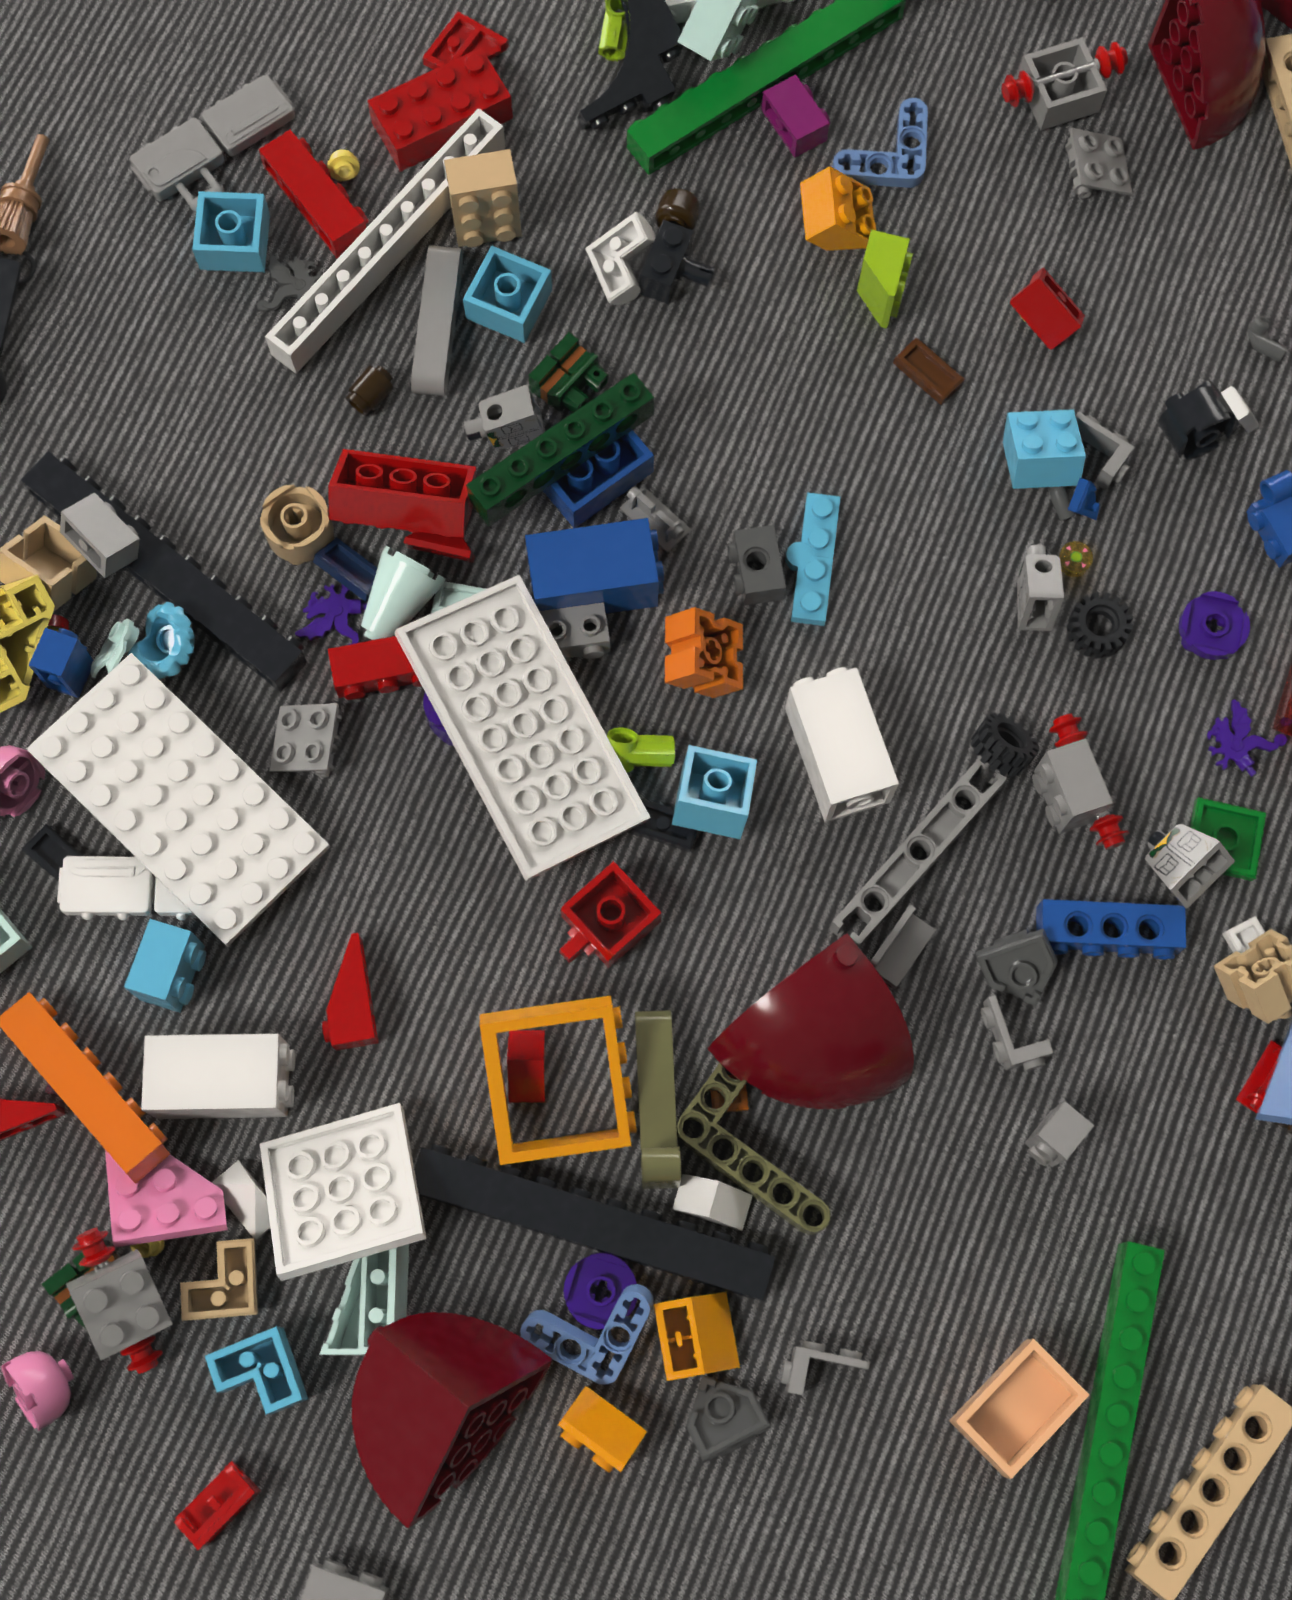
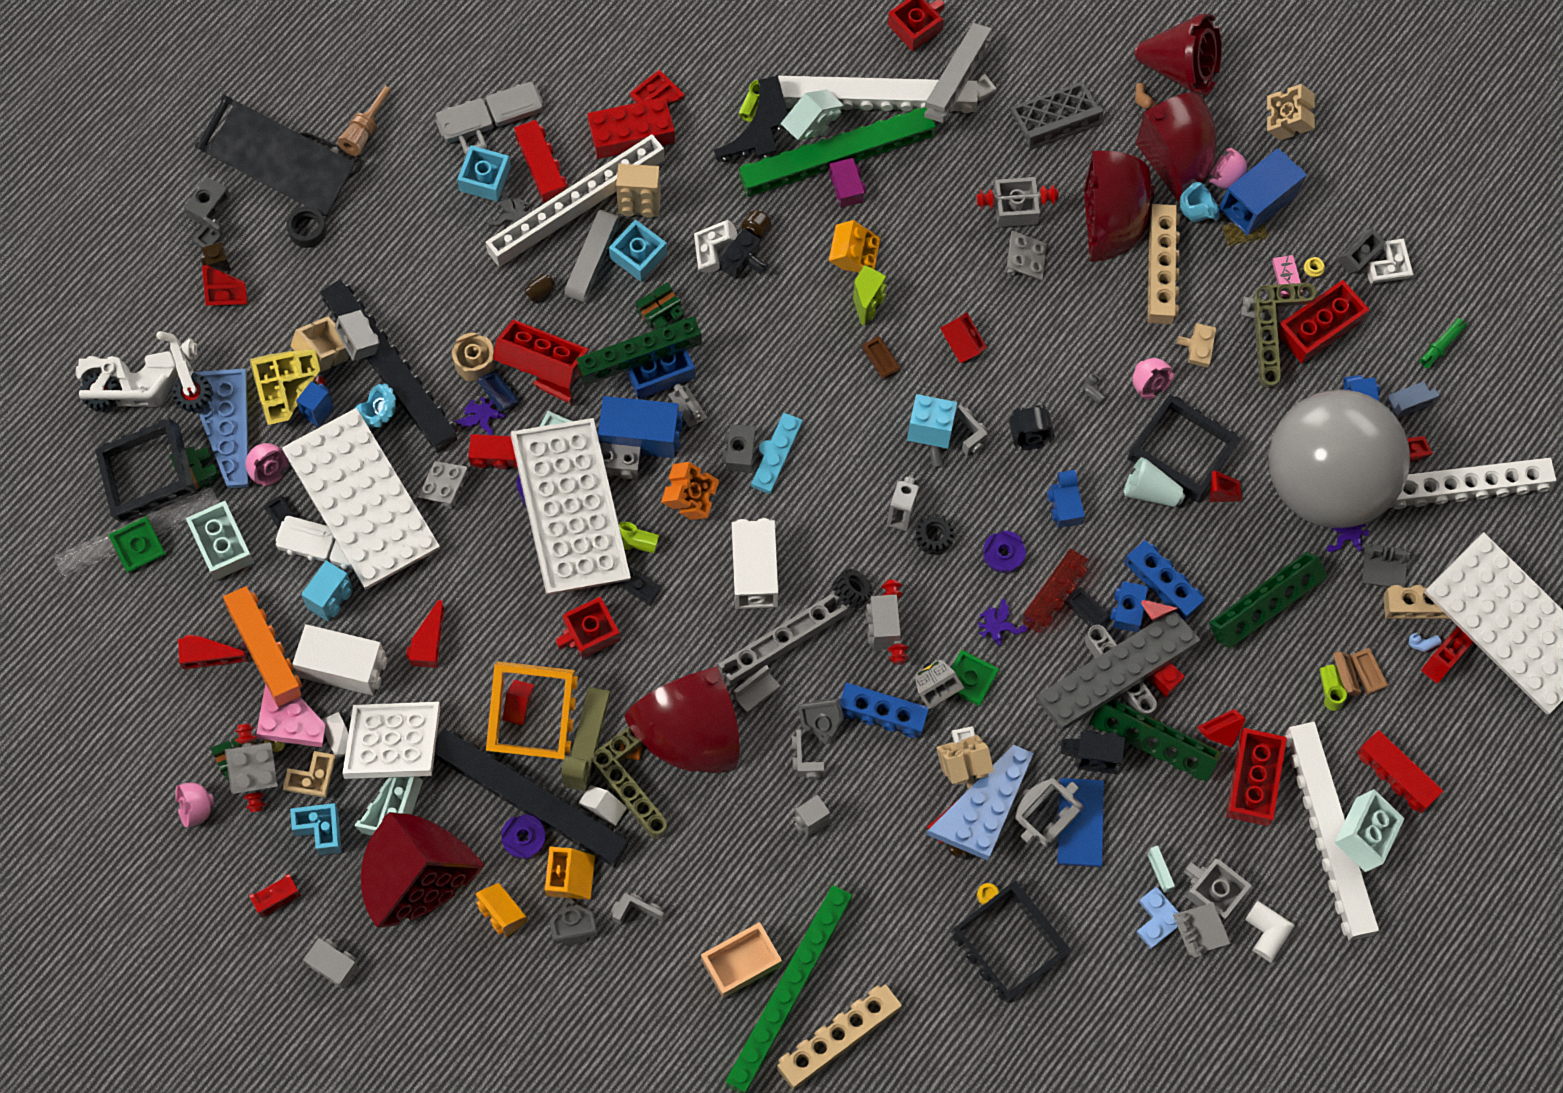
camera: 15 degrees right, 5 degrees down
(120, 640) = (352, 399): light aqua plate -> none
(343, 165) = (562, 148): light yellow plate -> none
(397, 594) = (521, 412): light aqua cone -> none
(507, 419) = (615, 325): light grey torso -> none
(592, 1349) = (511, 866): medium blue beam -> none
(714, 792) = (672, 572): medium azure brick -> none
(896, 161) = (901, 226): medium blue beam -> none
(1075, 558) = (933, 491): clear yellow tile -> none
(1084, 499) = (948, 458): blue tile -> none
(1240, 409) = (1059, 427): white tile -> none

